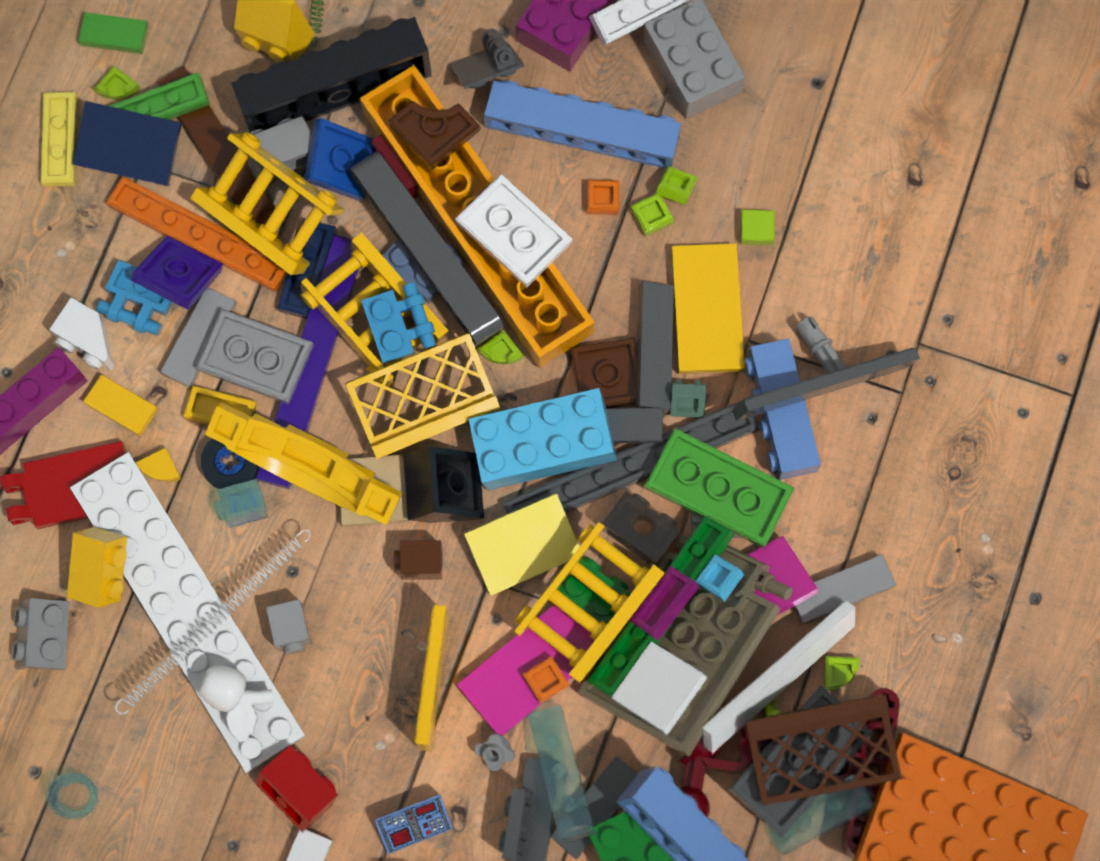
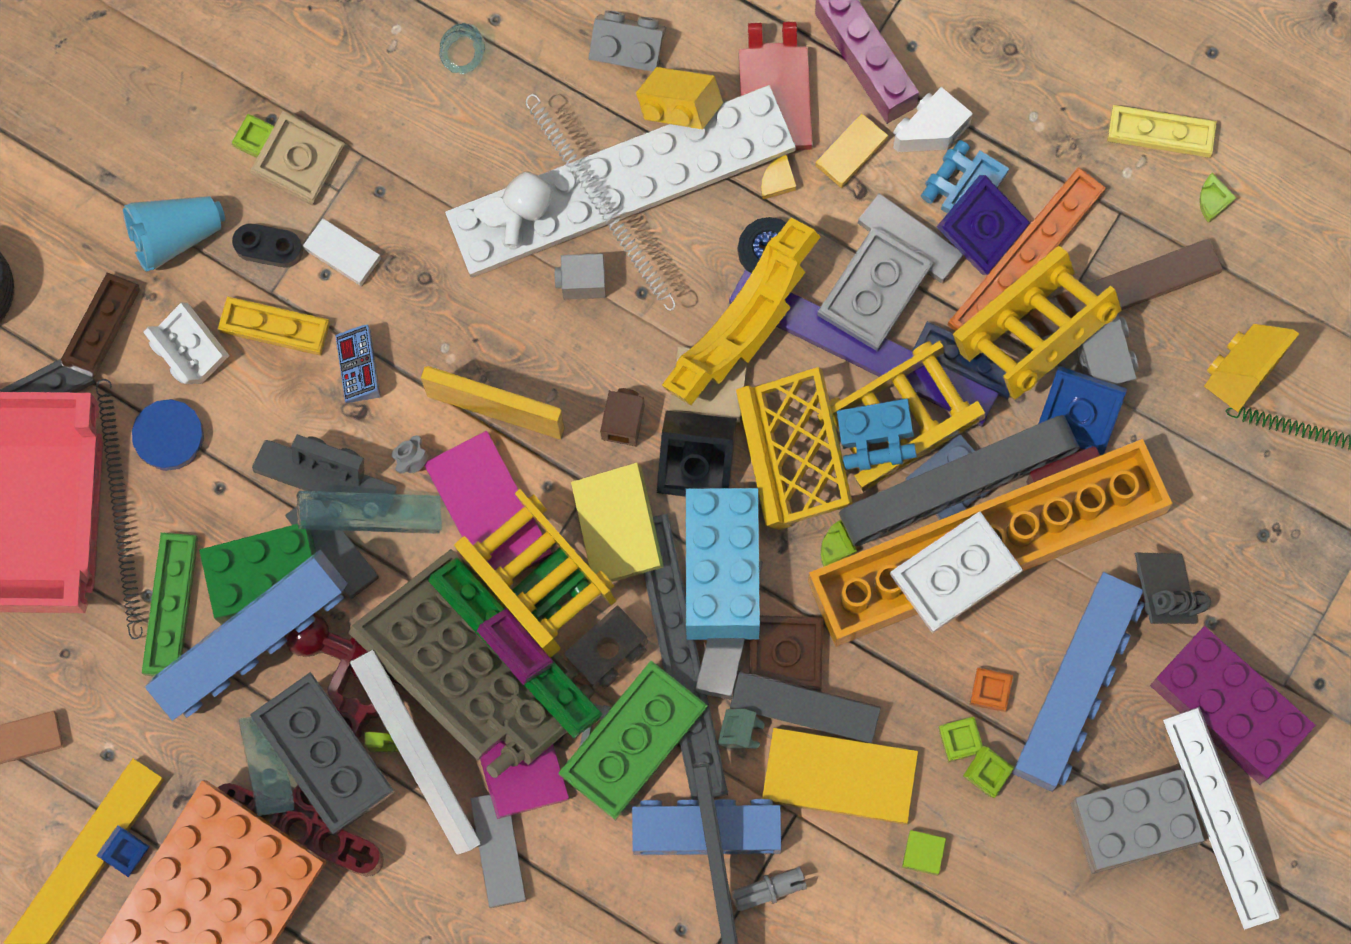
camera: 105 degrees right, 0 degrees up
(113, 33) = (1276, 203): bright green tile -> none
(127, 143) = (1139, 196): dark blue tile -> none
(170, 99) = (1176, 221): bright green tile -> none
(203, 403) = (828, 252): yellow tile -> none
(241, 503) = (719, 251): clear light blue brick -> none
(296, 788) = (417, 256): red brick -> none
(331, 77) = (1176, 417): black brick -> none
(434, 133) = (1085, 509): reddish brown tile -> none
(546, 680) = (469, 518): orange tile -> none
(659, 688) = (426, 620): white tile -> none
(719, 577) = (528, 709): medium azure tile -> none
(818, 718) = (356, 765): reddish brown fence -> none
(839, 671) = (412, 825): lime tile -> none

